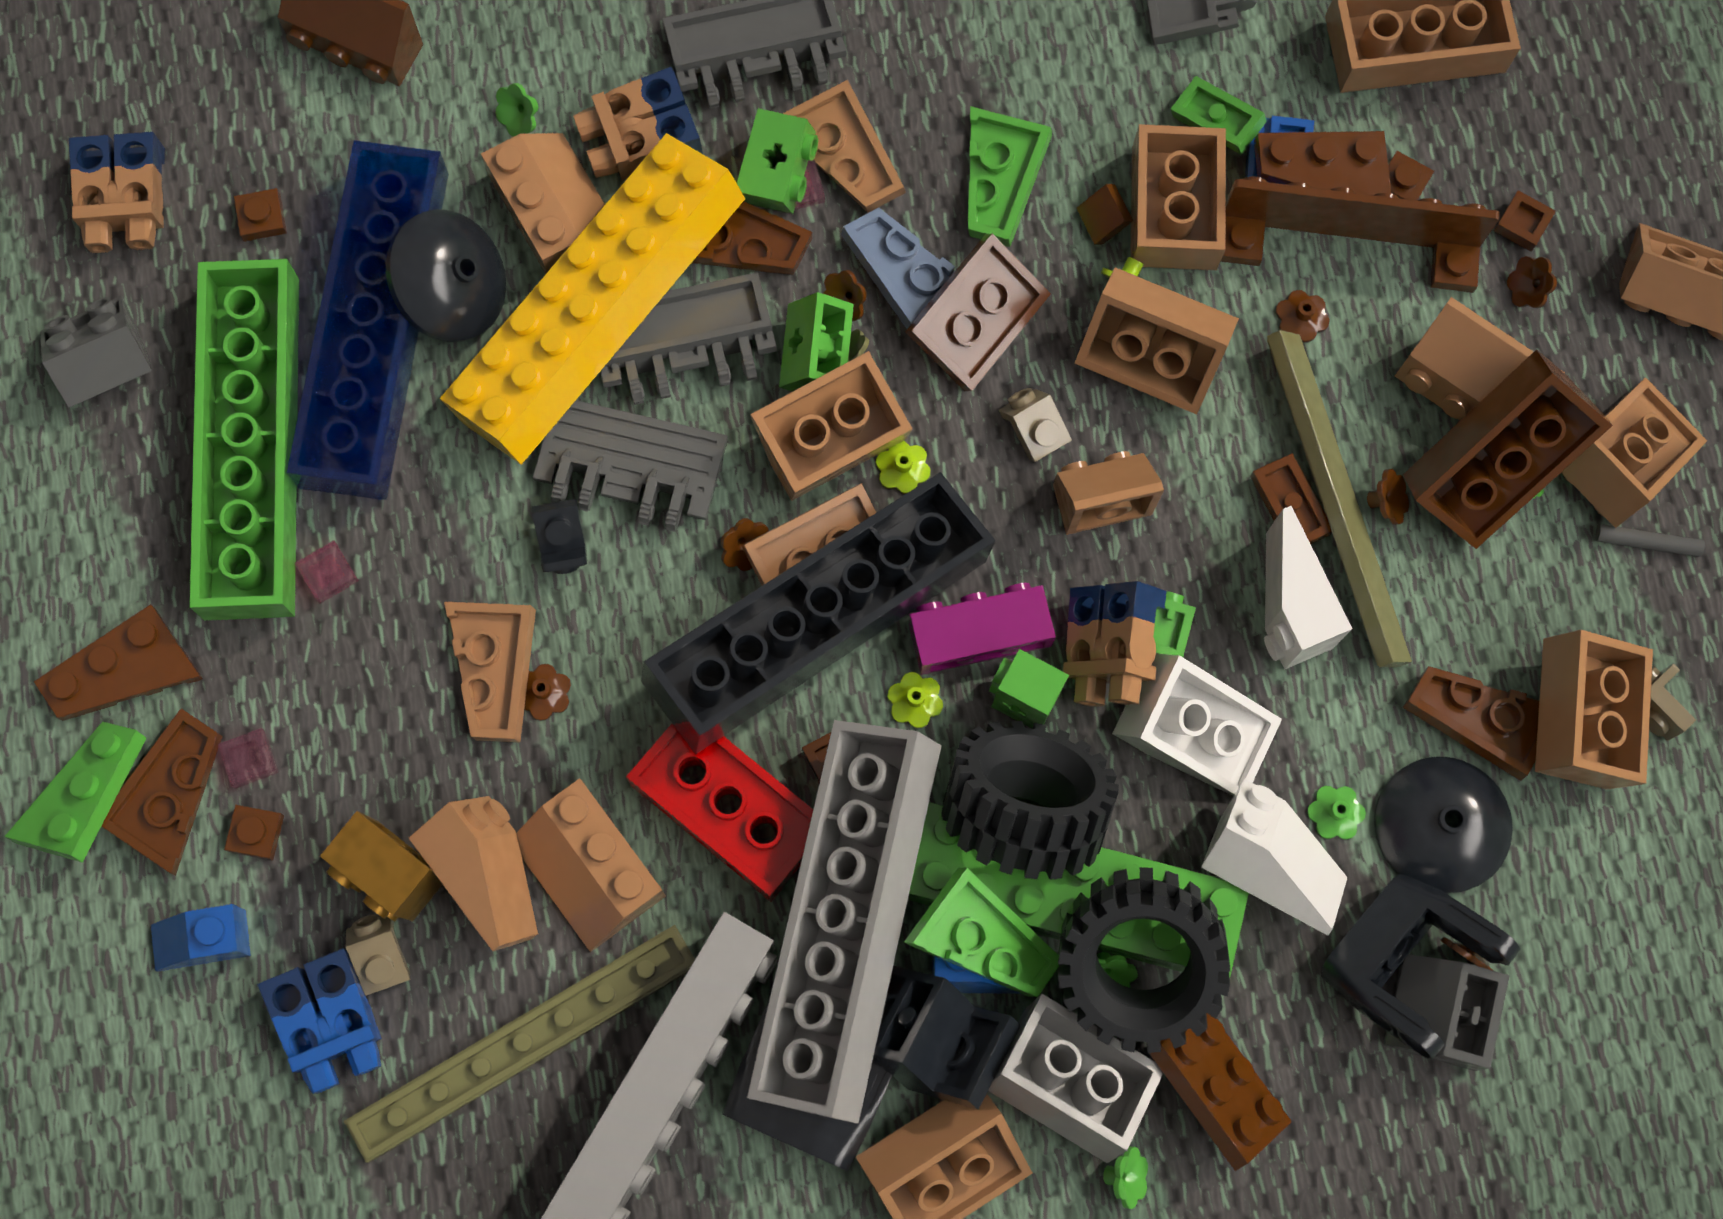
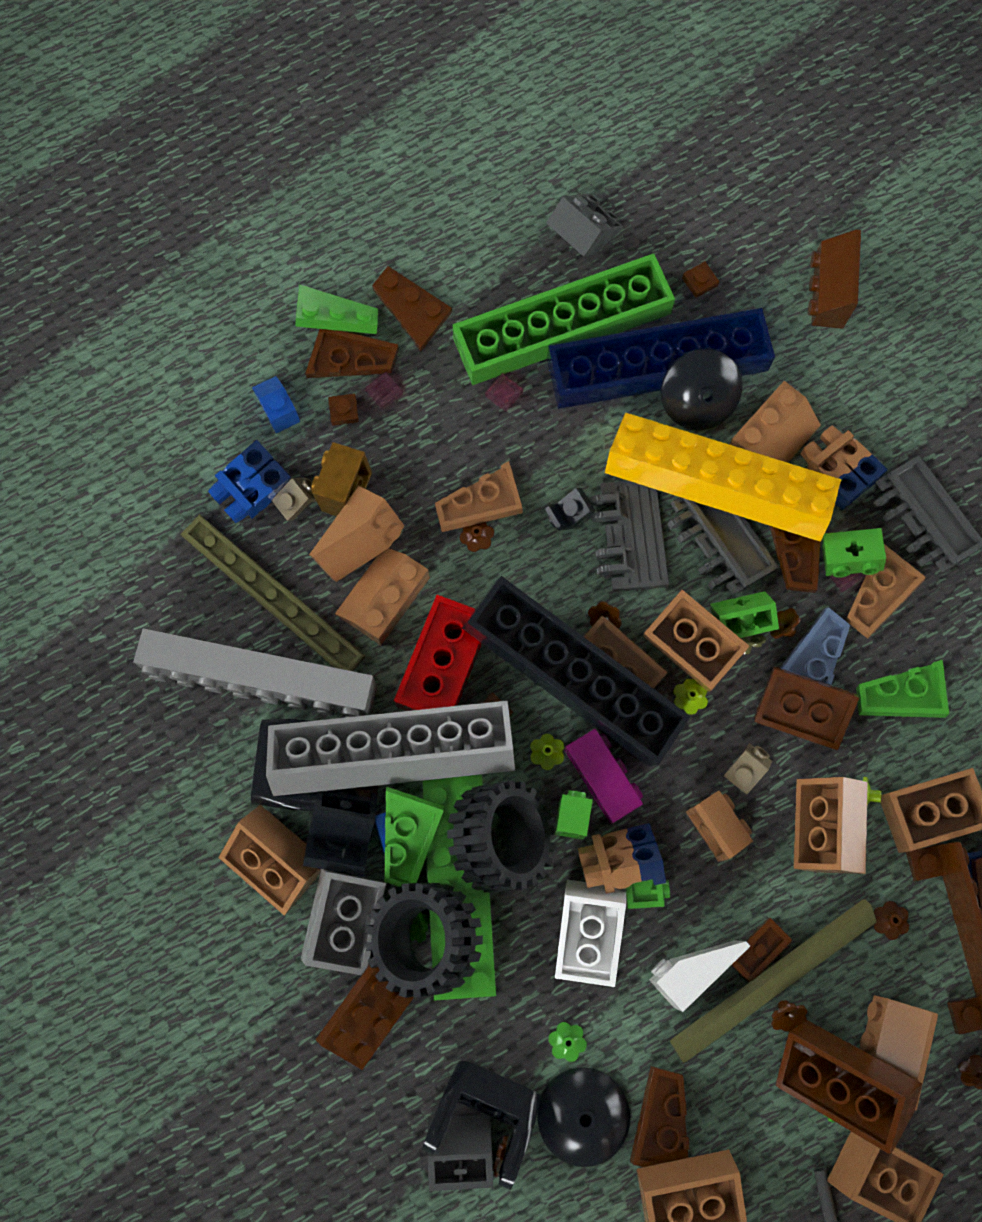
camera: 75 degrees right, 0 degrees up
(117, 189) = (683, 199): medium nougat hips -> none
(516, 109) = (823, 393): bright green plant -> none
(1104, 214) = (905, 767): reddish brown tile -> none
(1128, 1177) = (297, 975): bright green plant -> none
(1275, 857) = (520, 1009): white slope -> none

